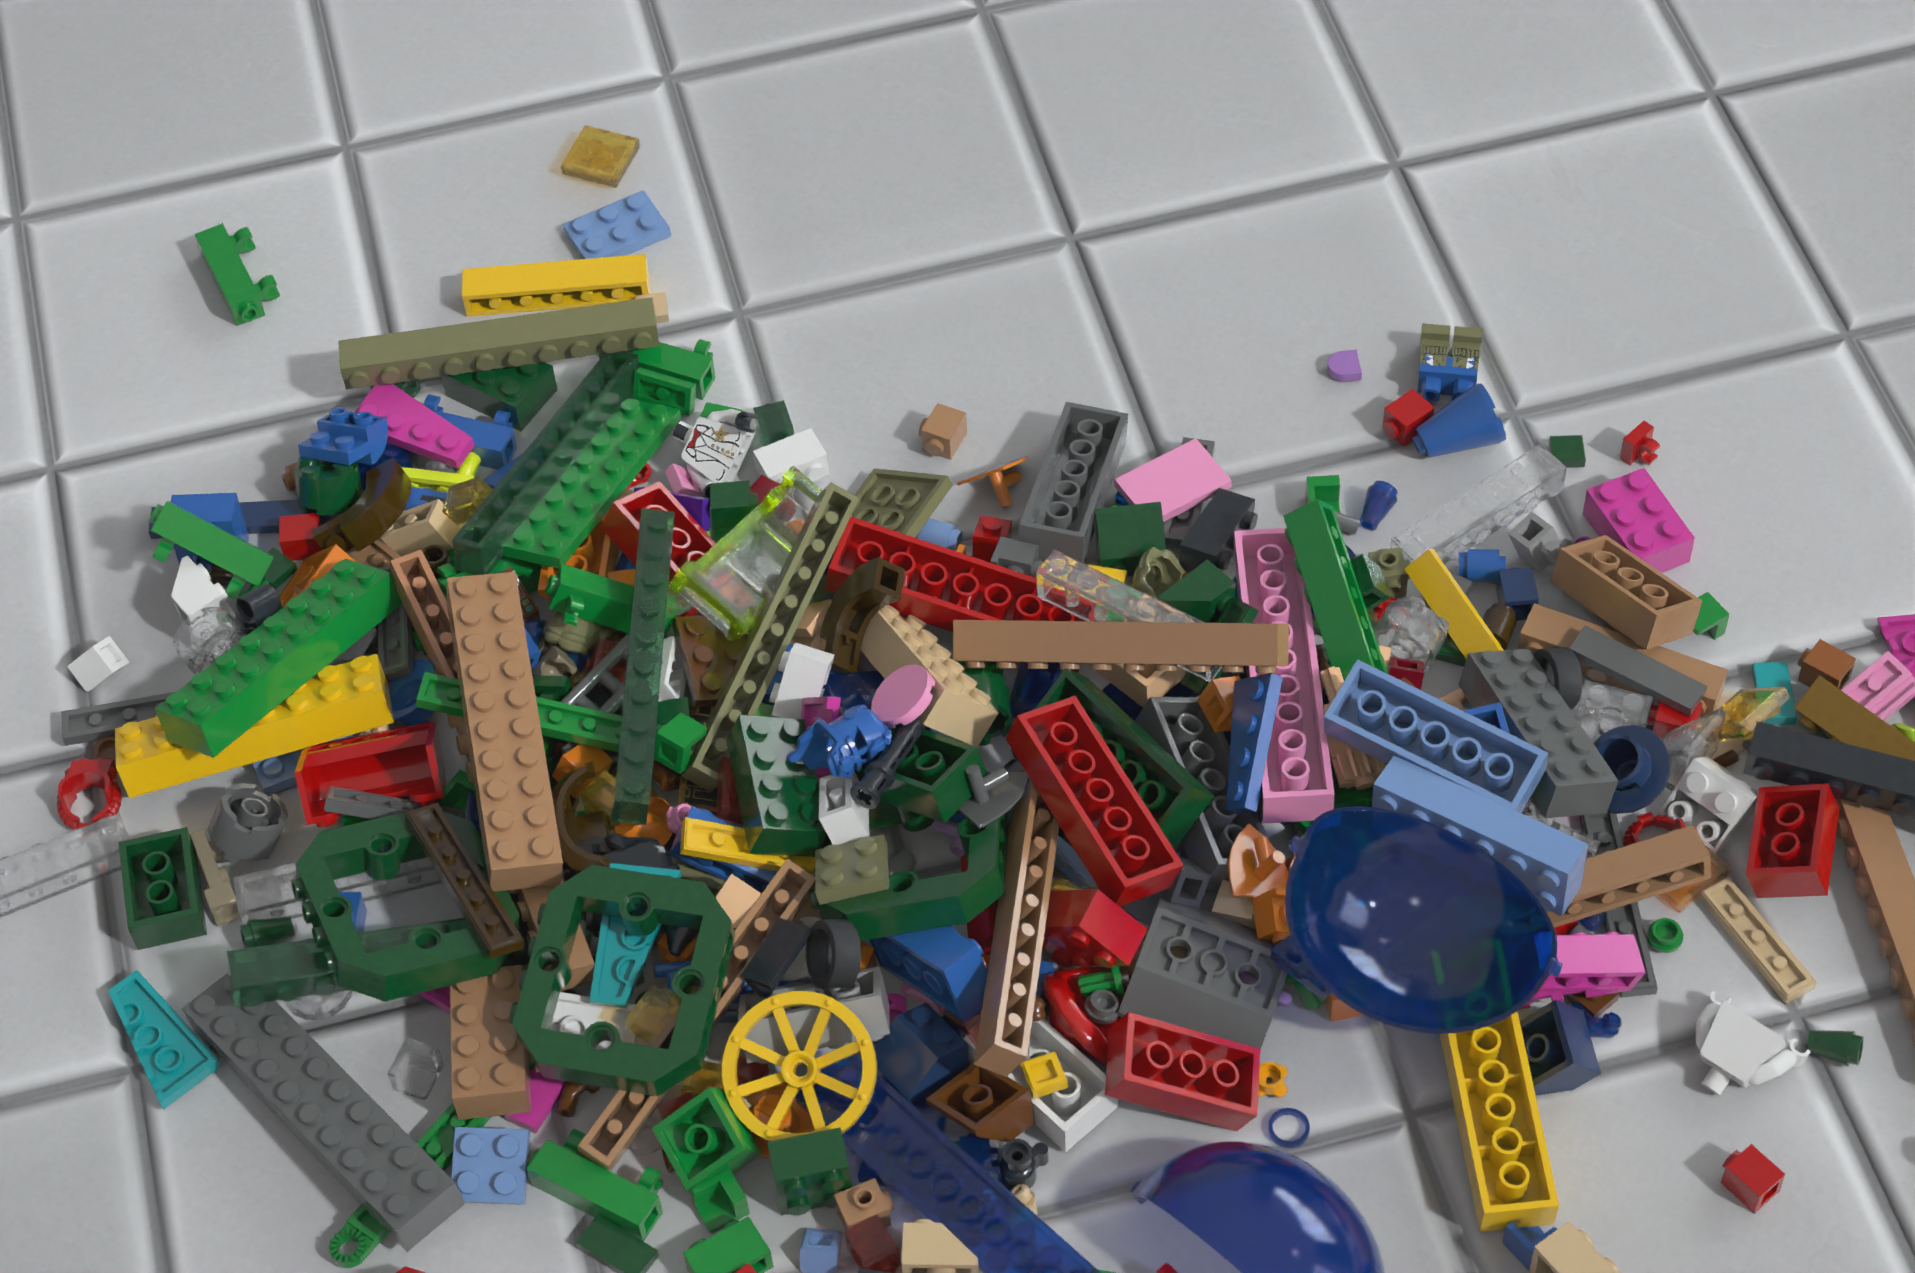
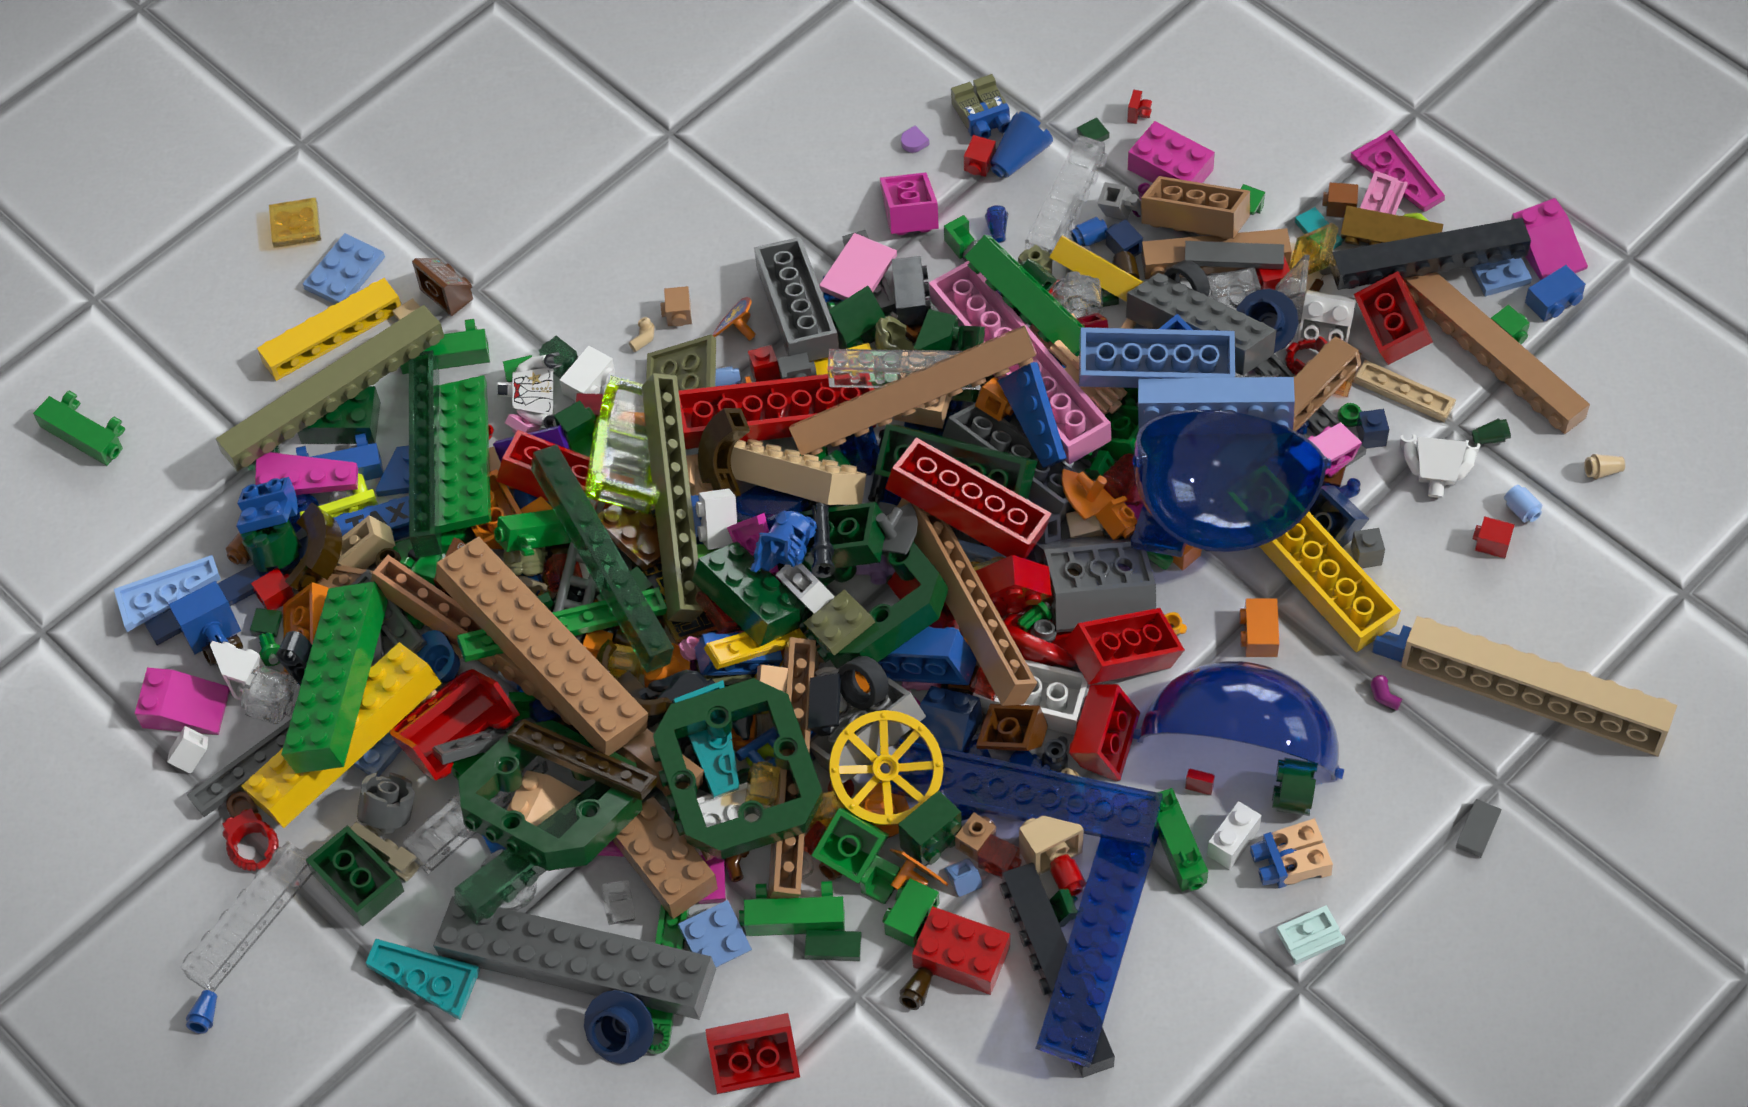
camera: 30 degrees left, 5 degrees up
(127, 608) = (179, 700): none -> dark pink slope
(166, 477) = (151, 595): none -> light blue wing
(210, 543) = (223, 623): green brick -> none
(266, 931) = (446, 869): dark green cone -> none
(310, 1210) = (609, 1017): none -> dark blue helmet
(404, 902) = (540, 797): none -> light nougat slope
(465, 499) = (390, 507): clear yellow brick -> none
(664, 390) = (462, 367): green plate -> none
(675, 741) = (661, 596): green panel -> none
(705, 289) = (442, 284): none -> reddish brown slope
(751, 1208) = (906, 871): none -> orange shield
(888, 448) = (646, 334): none -> tan arm
(903, 695) = (803, 491): bright pink tile -> none
(1044, 1075) = (1043, 692): yellow tile -> none
(1097, 1165) = (1105, 731): none -> red slope
(1287, 435) = (909, 203): none -> dark pink slope
(1288, 1111) = (1204, 638): clear blue piece -> none
(1375, 1138) = (1261, 627): none -> orange brick
(1576, 1109) = (1368, 548): none -> dark grey brick
(1680, 965) = (1372, 428): none -> dark blue brick
(1819, 1155) = (1523, 503): none -> light blue brick

